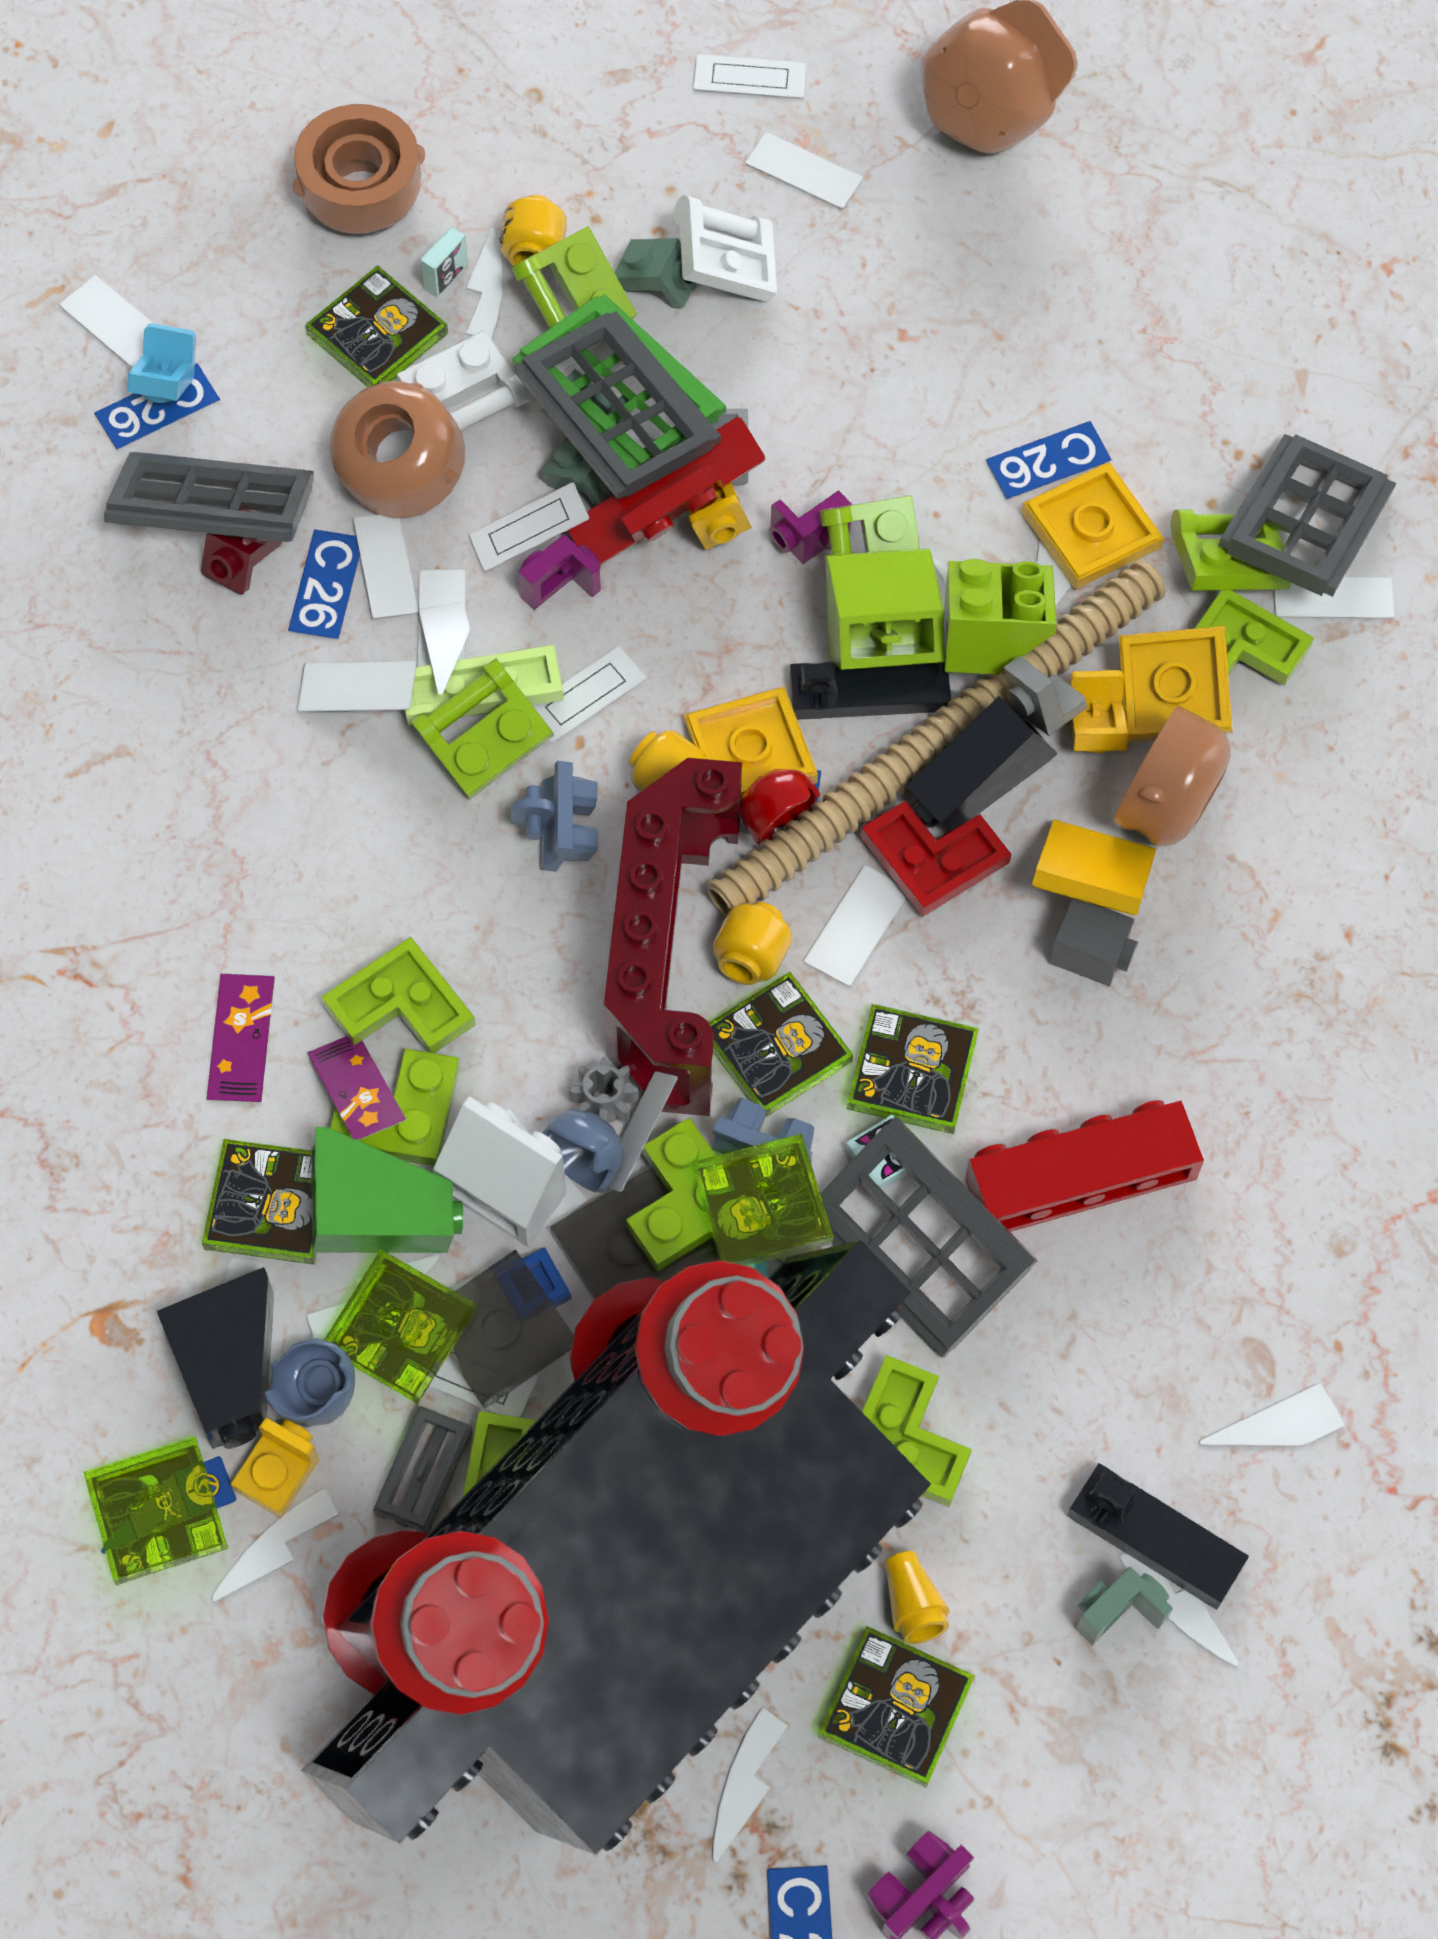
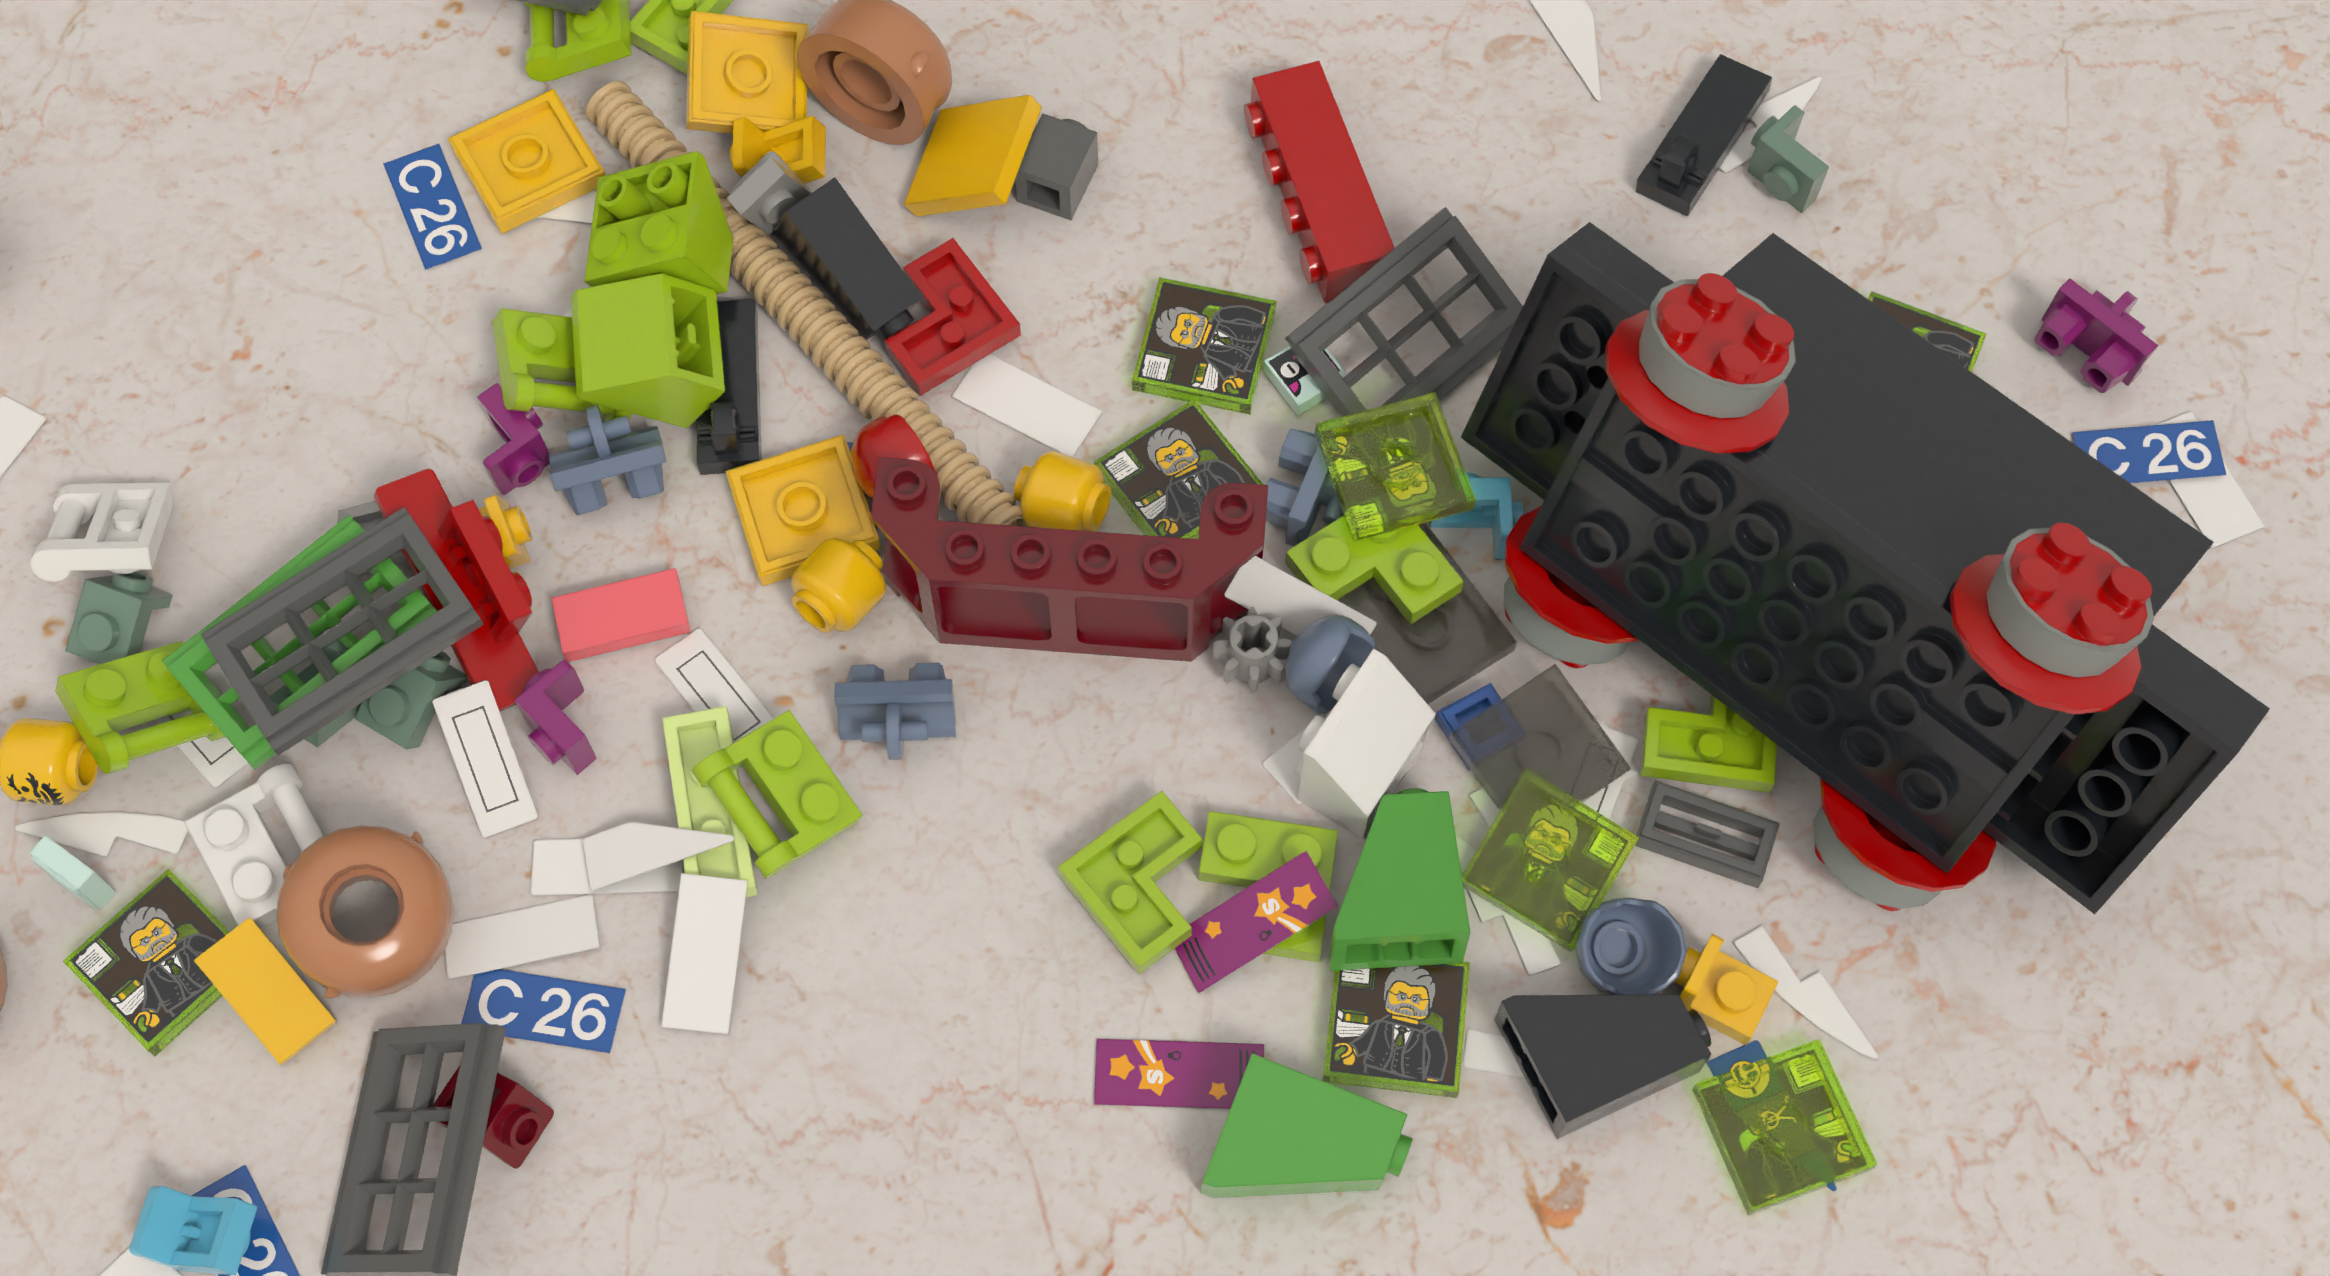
camera: 90 degrees left, 0 degrees up
(171, 1116) = (1302, 1138): none -> bright green slope
(325, 400) = (265, 991): none -> yellow tile
(655, 617) = (621, 615): none -> coral tile
(790, 590) = (603, 452): none -> sand blue hips

